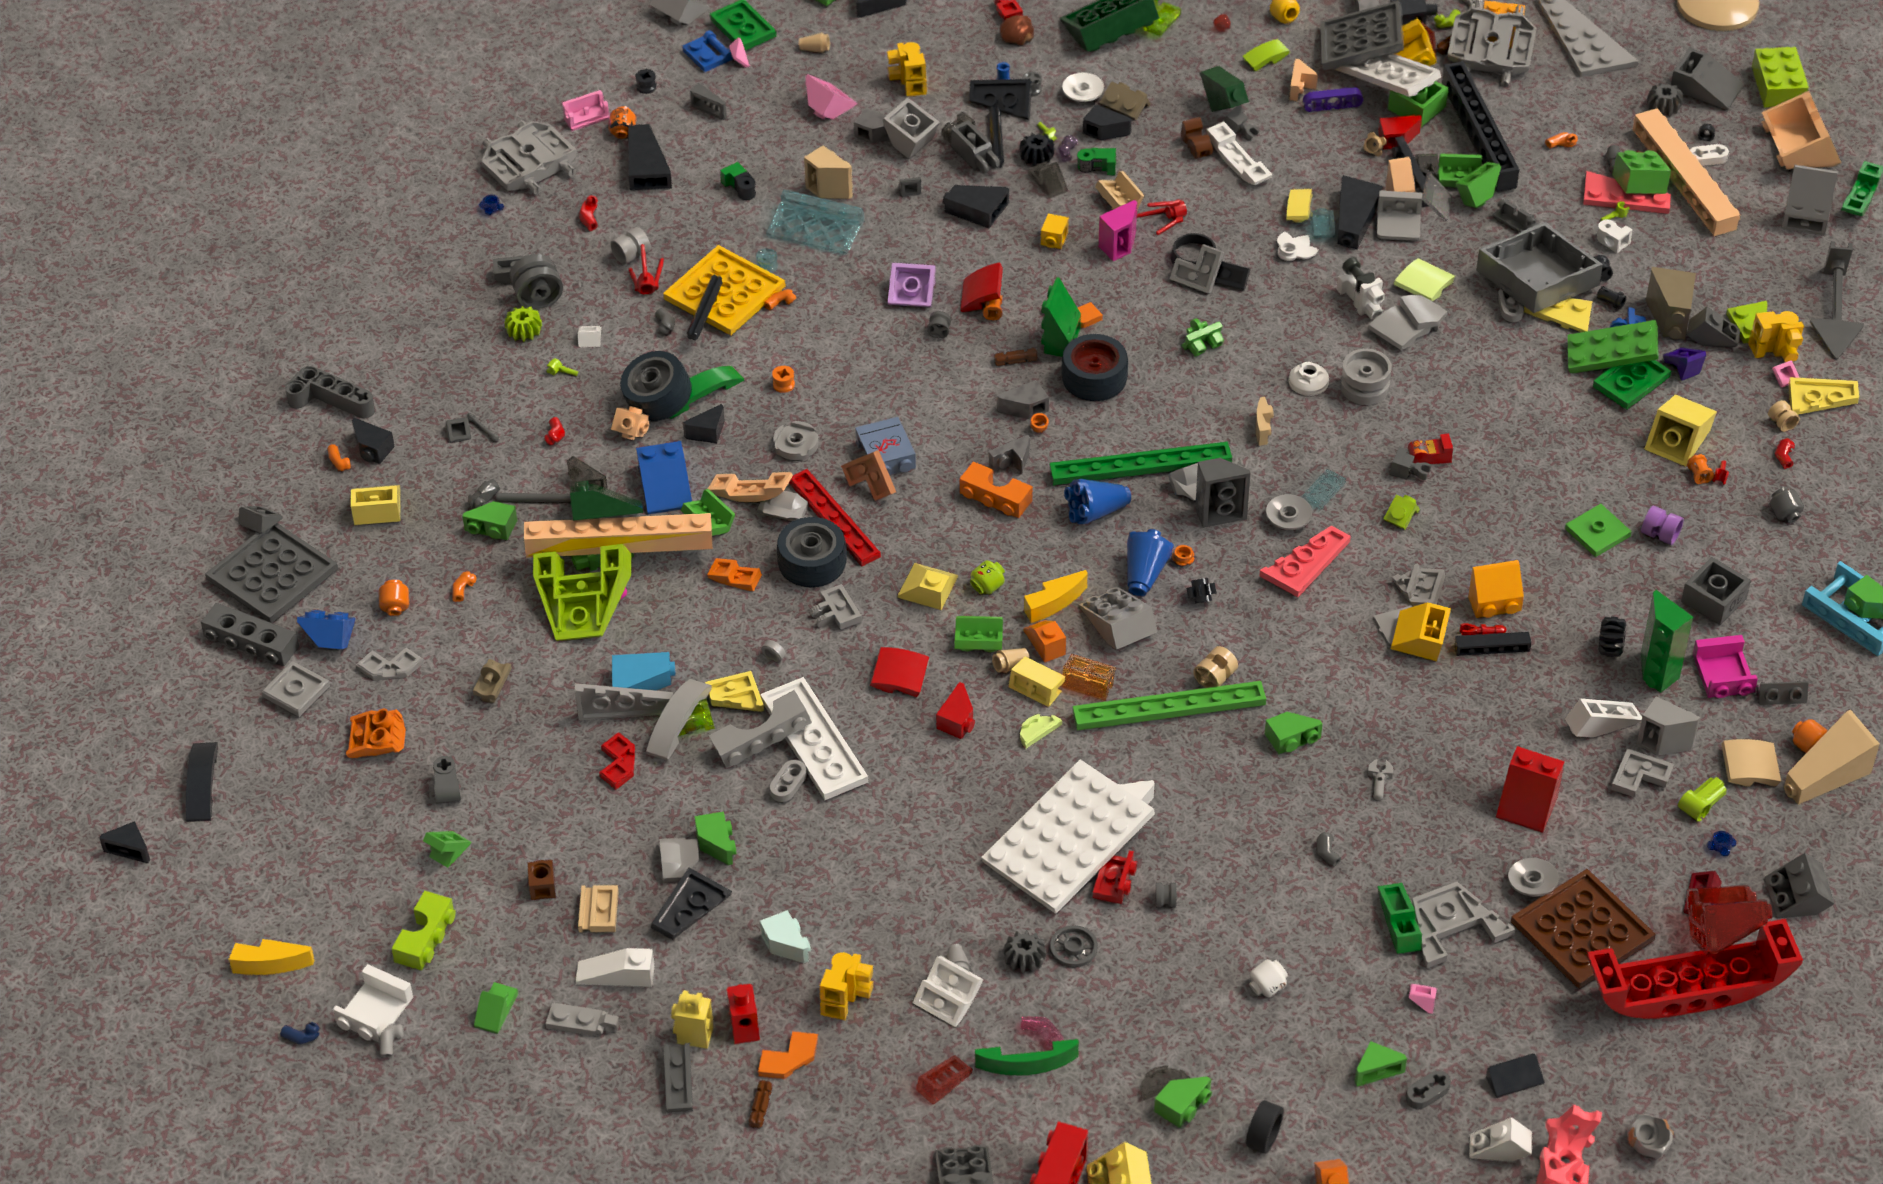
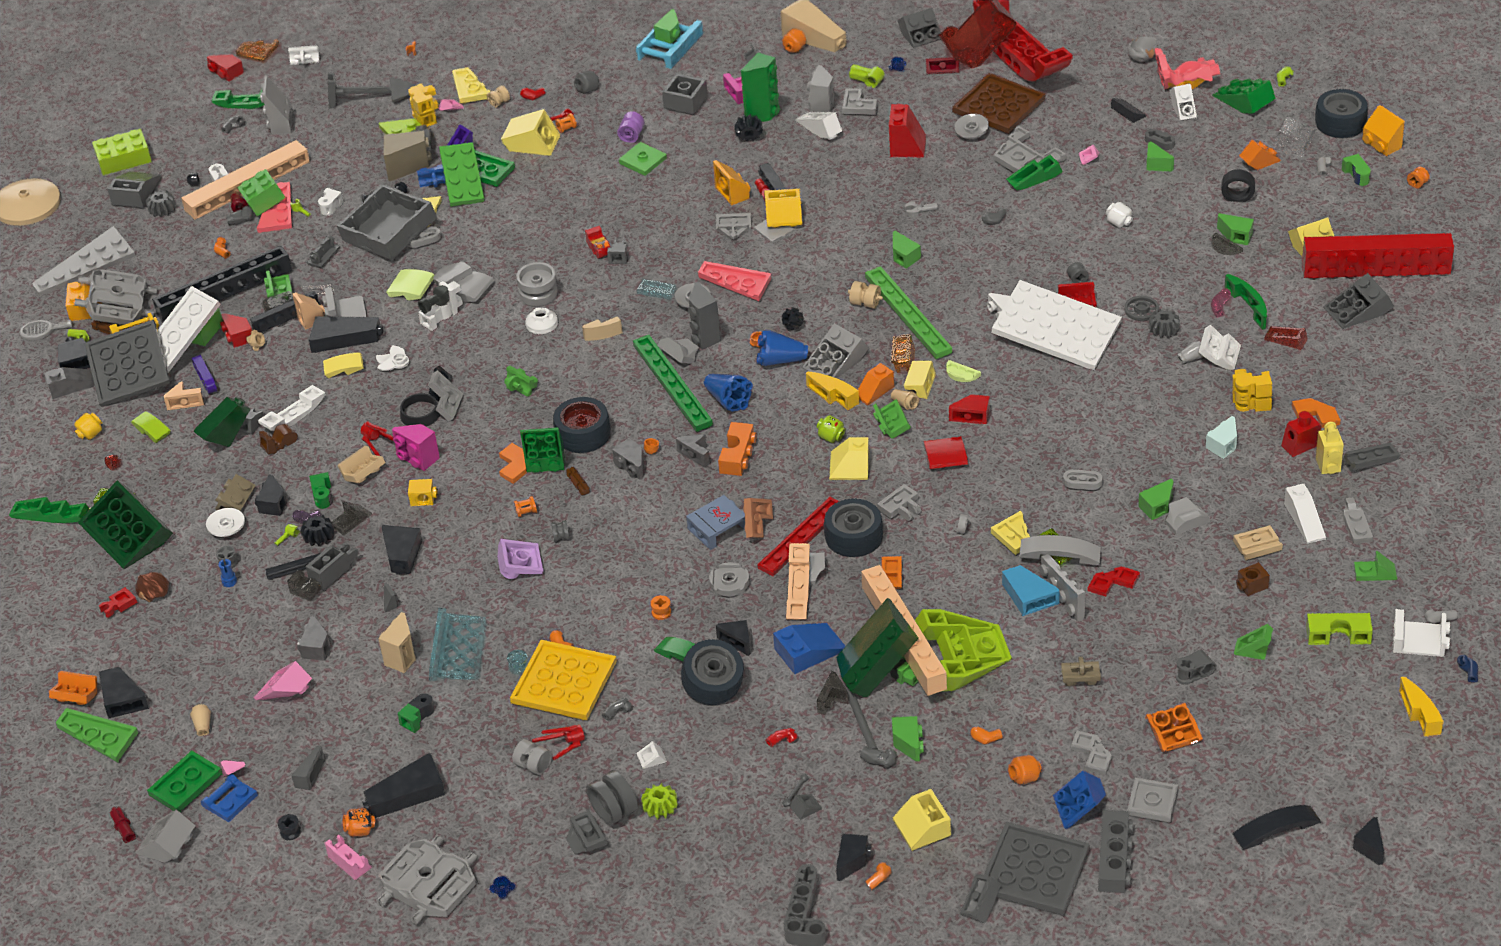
camera: 105 degrees left, 5 degrees down
(555, 366) = (703, 764): lime hand -> none
(586, 213) = (491, 811): red arm -> none
(630, 422) = (756, 682): light nougat brick -> none
(688, 903) = (1223, 498): black wing -> none
(704, 307) = (599, 675): black axle -> none
(721, 515) = (837, 603): bright green bracket -> none
(738, 744) = (1033, 483): light grey arch -> none
(760, 1104) = (1363, 413): reddish brown axle -> none
(820, 744) = (1034, 478): white plate -> none
(910, 68) = (234, 631): yellow hips -> none
(910, 127) = (322, 605): light grey slope -> none
(981, 287) = (509, 514): red slope -> none
(1010, 95) = (249, 569): black wing -> none
(1322, 223) = (362, 345): clear light blue bracket -> none
(1401, 511) = (666, 244): lime bracket -> none
(1479, 185) = (297, 268): bright green slope -> none
(1751, 762) = (828, 60): tan slope -> none
(1800, 134) = (195, 127): light nougat windscreen -> none

